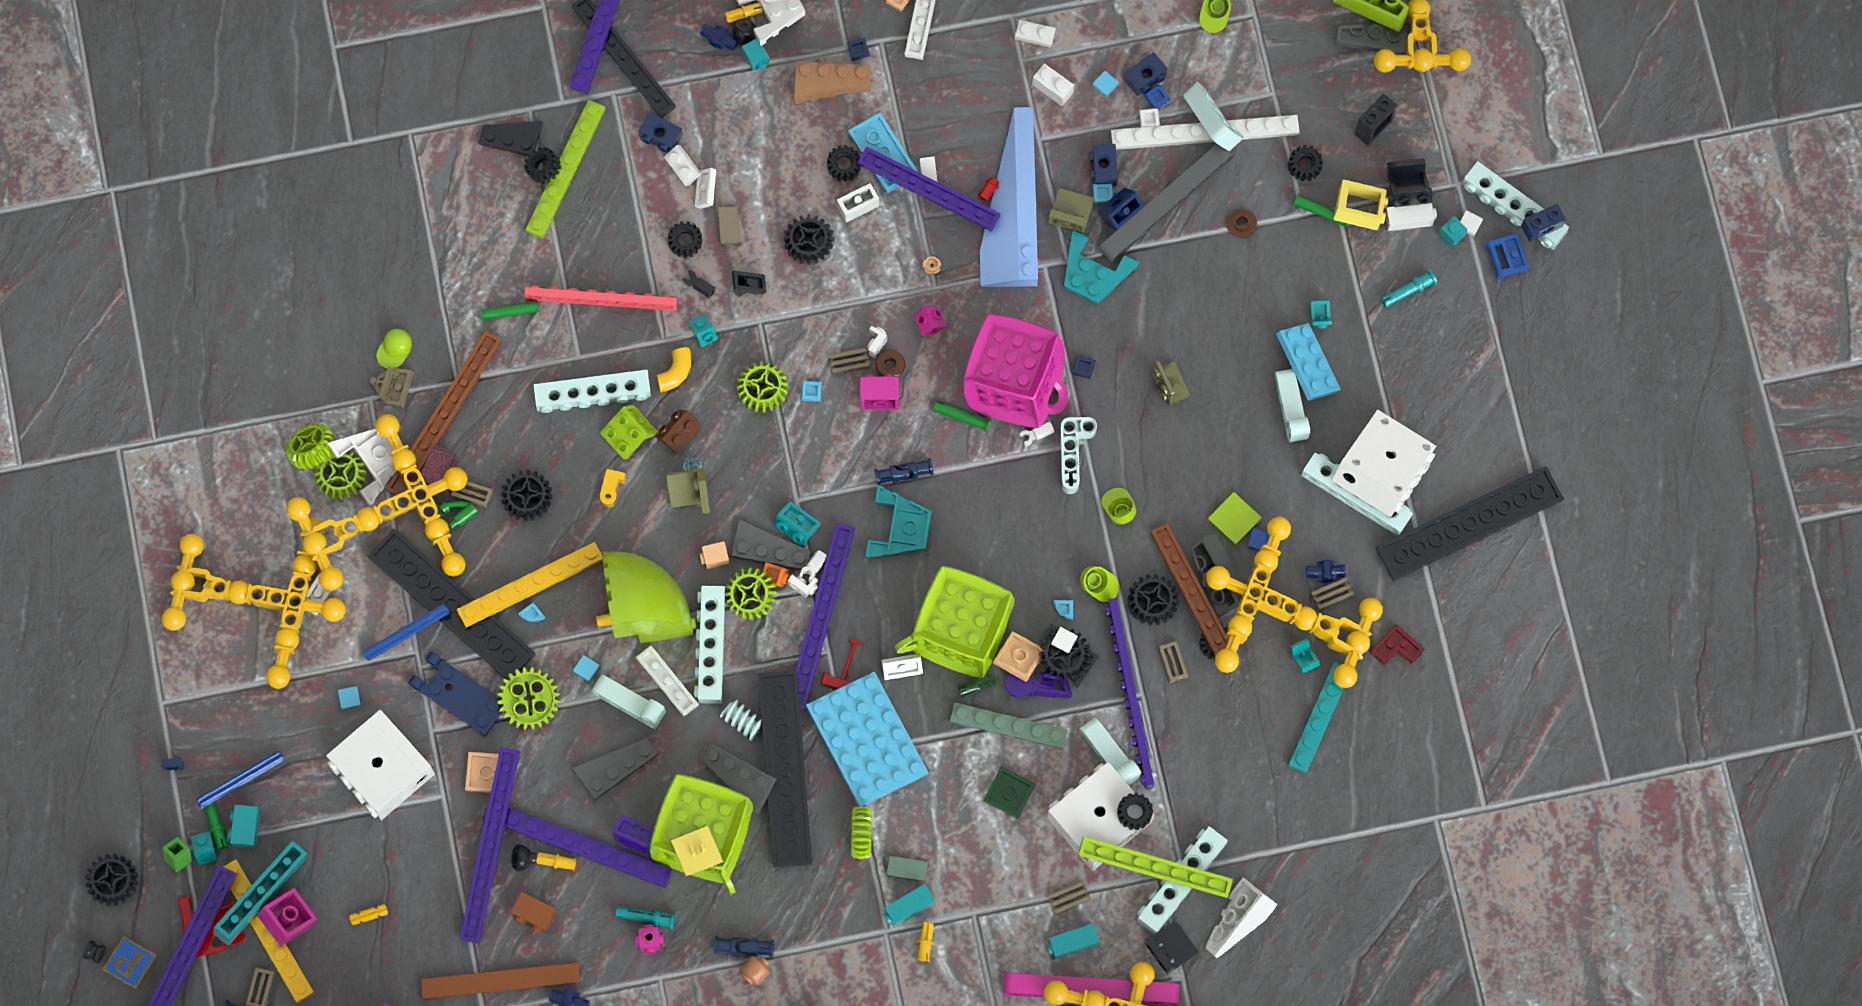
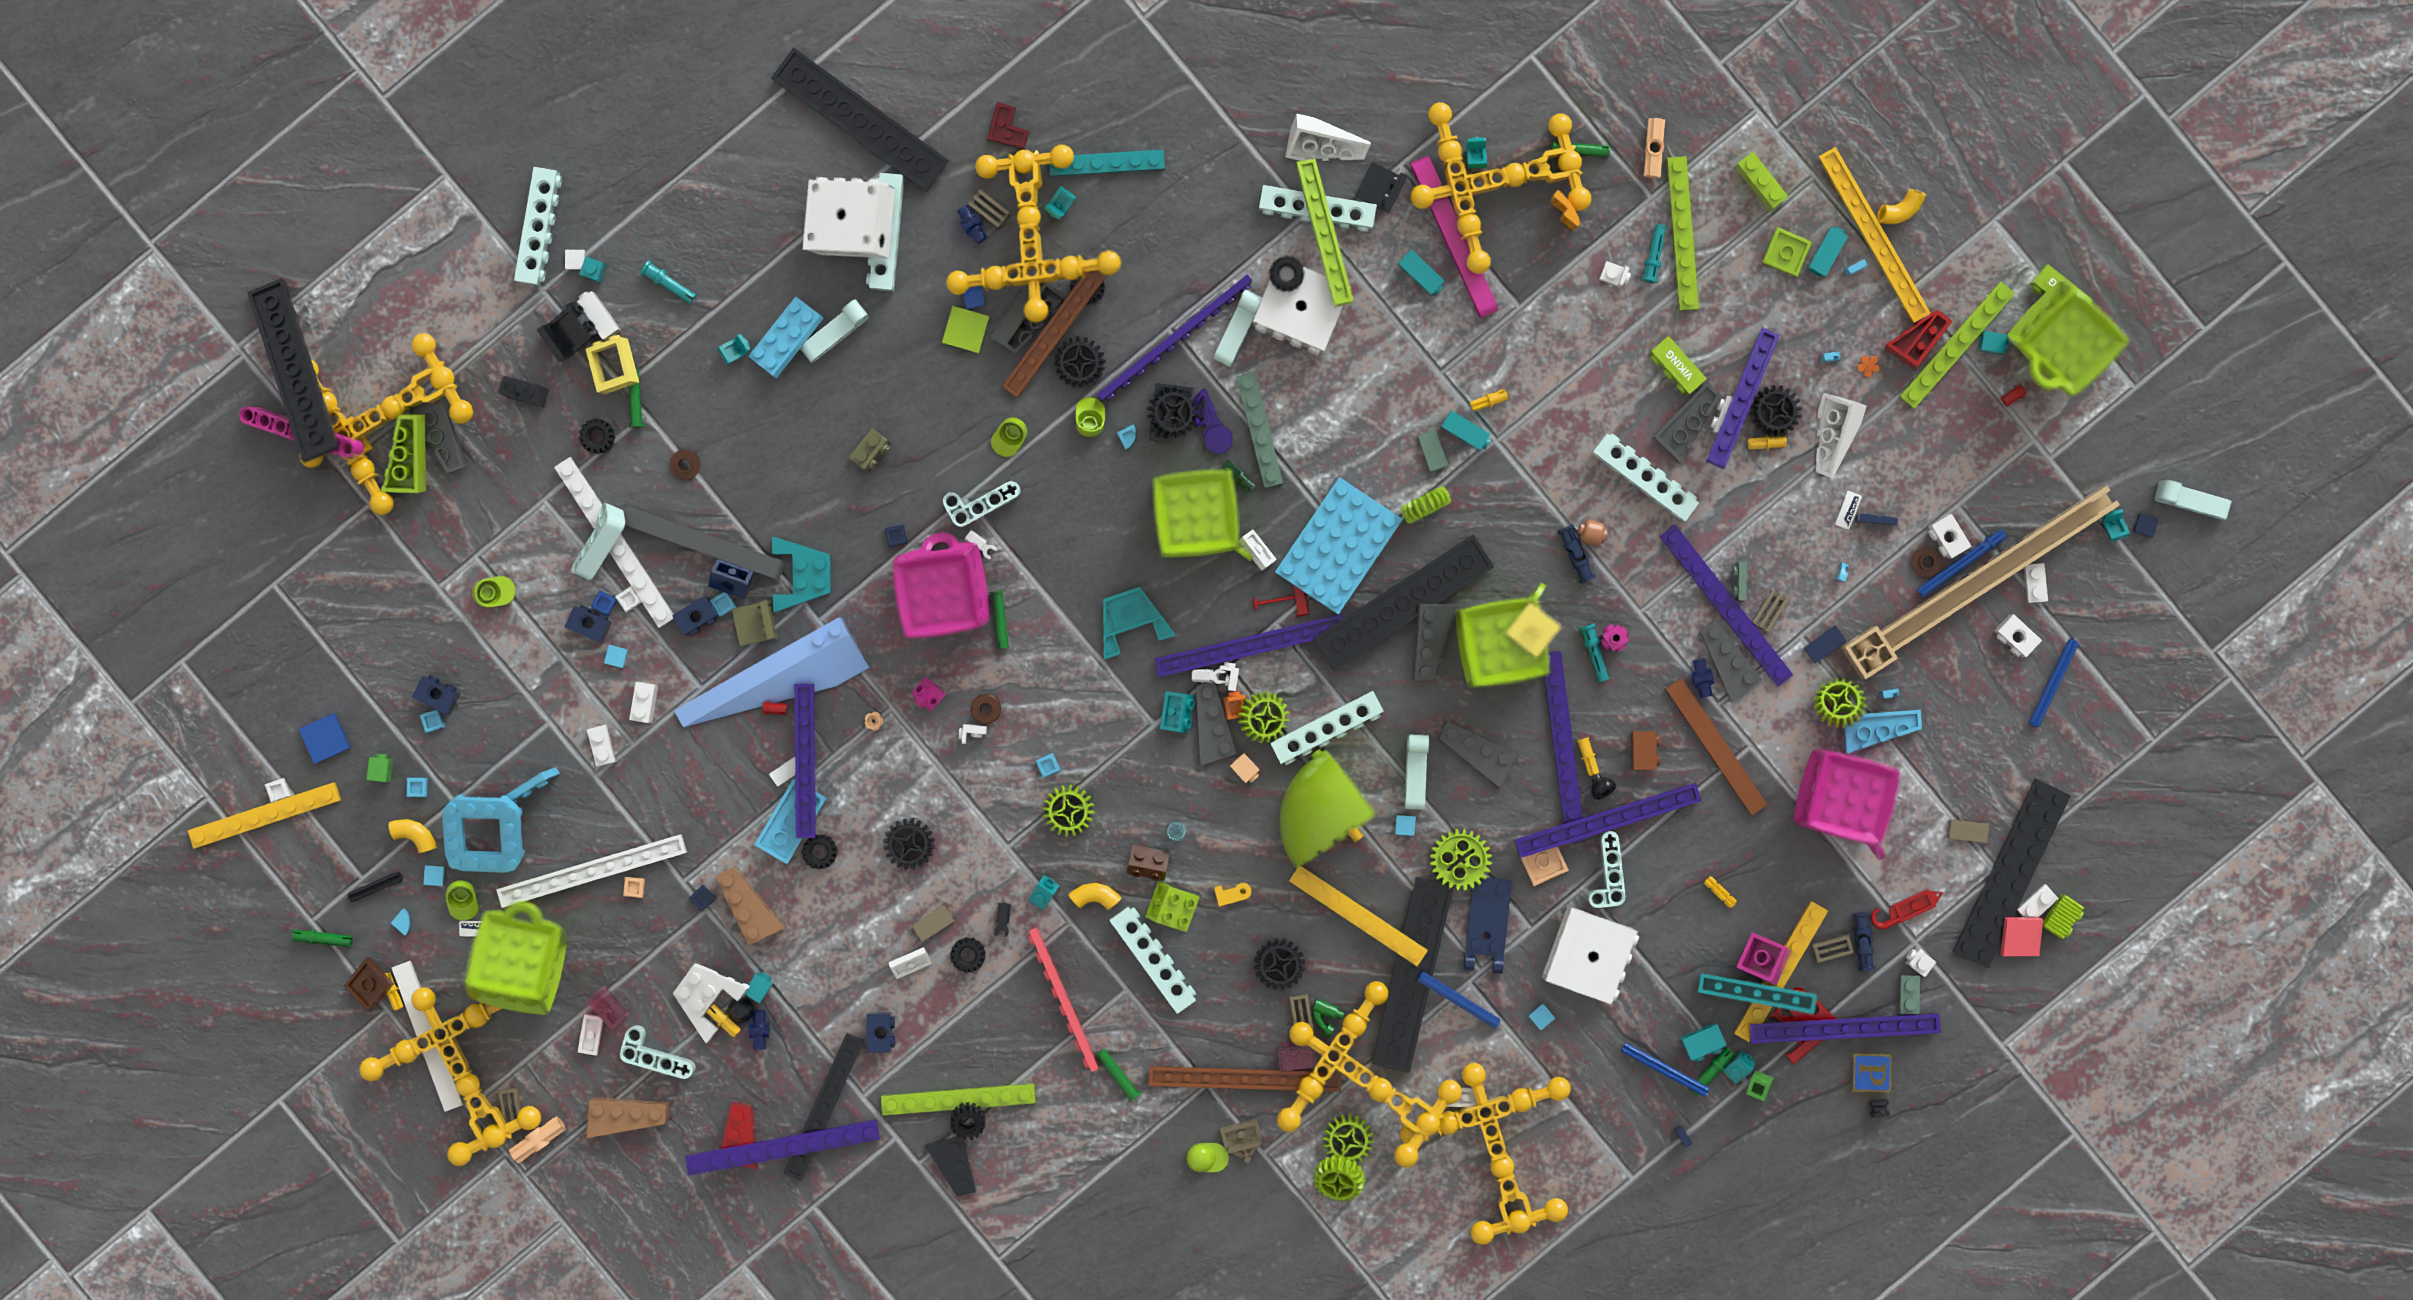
camera: 115 degrees left, 15 degrees up
(104, 881) = (1820, 1142): black gear -> none
(374, 453) = (1316, 1119): white wing -> none
(447, 825) = (1608, 868): none -> light aqua beam
(531, 613) = (1381, 900): medium azure tile -> none
(628, 835) = (1536, 697): dark purple window -> none
(667, 681) = (1378, 748): white tile -> none
(682, 165) = (899, 995): white plate -> none
(688, 489) = (1198, 823): olive bracket -> none
(742, 719) = (1379, 663): light aqua piece -> none
(748, 283) = (979, 874): black slope -> none
(846, 361) = (992, 734): dark tan tile -> none
(858, 202) = (851, 817): white brick -> none
(879, 392) = (1020, 702): dark pink brick -> none
(897, 473) = (1082, 645): dark blue piece -> none
(1009, 792) = (1319, 397): dark green plate -> none
(1019, 656) = (1193, 452): light nougat tile -> none
(1064, 640) = (1163, 417): white tile -> none
(1079, 885) = (1387, 291): dark tan tile -> none
(1177, 677) = (1130, 322): dark tan tile -> none
(1513, 255) = (584, 206): blue plate -> none
(1543, 222) = (543, 189): dark blue brick -> none

